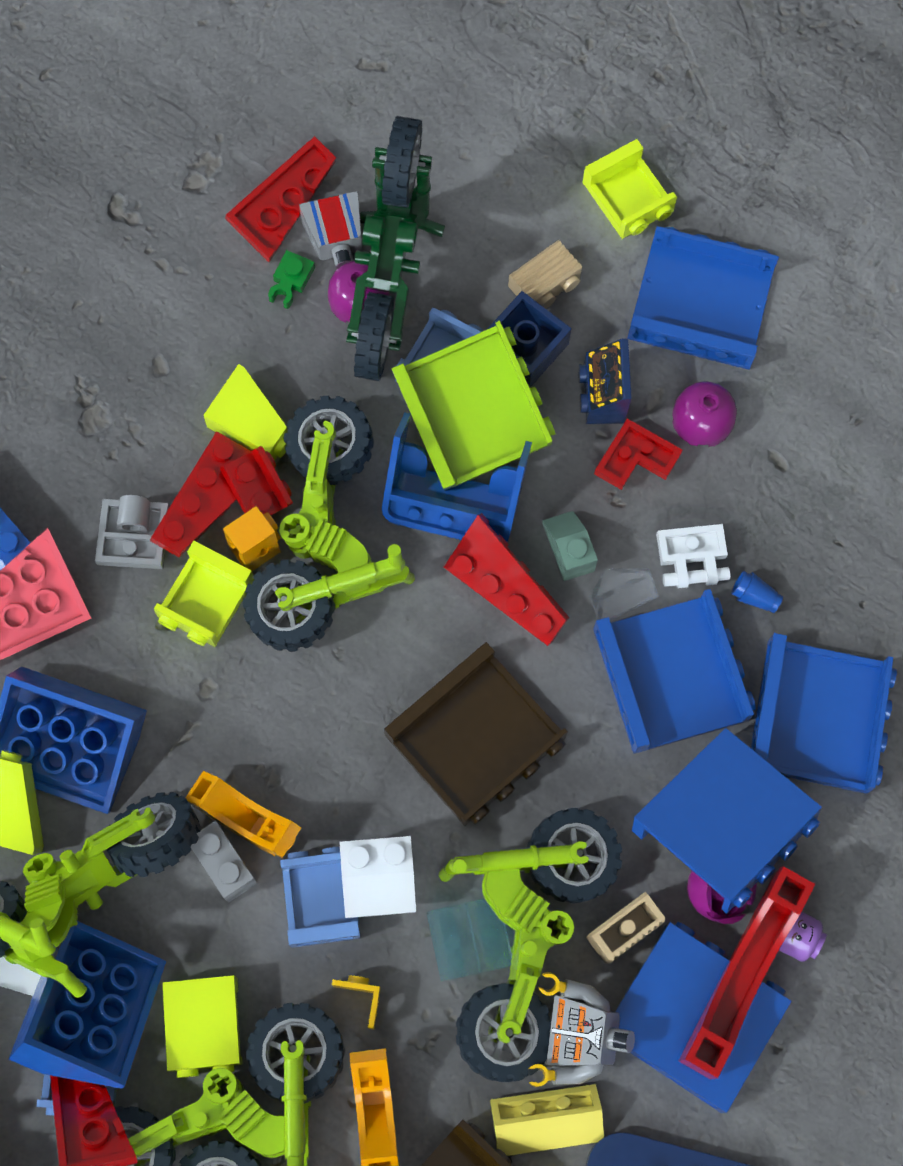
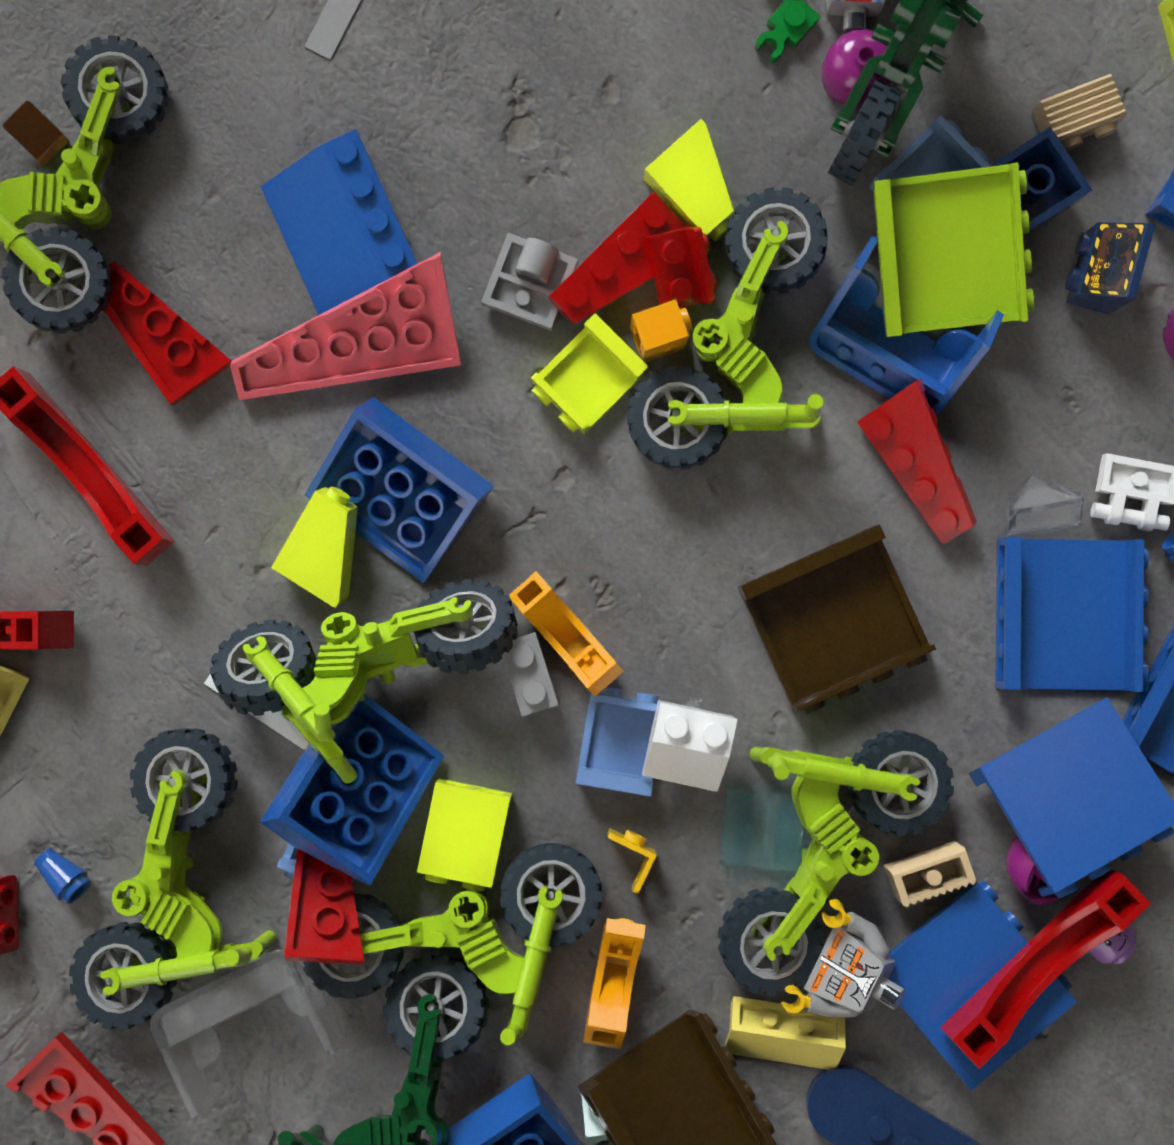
camera: 25 degrees right, 15 degrees up
(570, 545) = (1004, 438): sand green slope -> none
(636, 447) = (1112, 348): red plate -> none

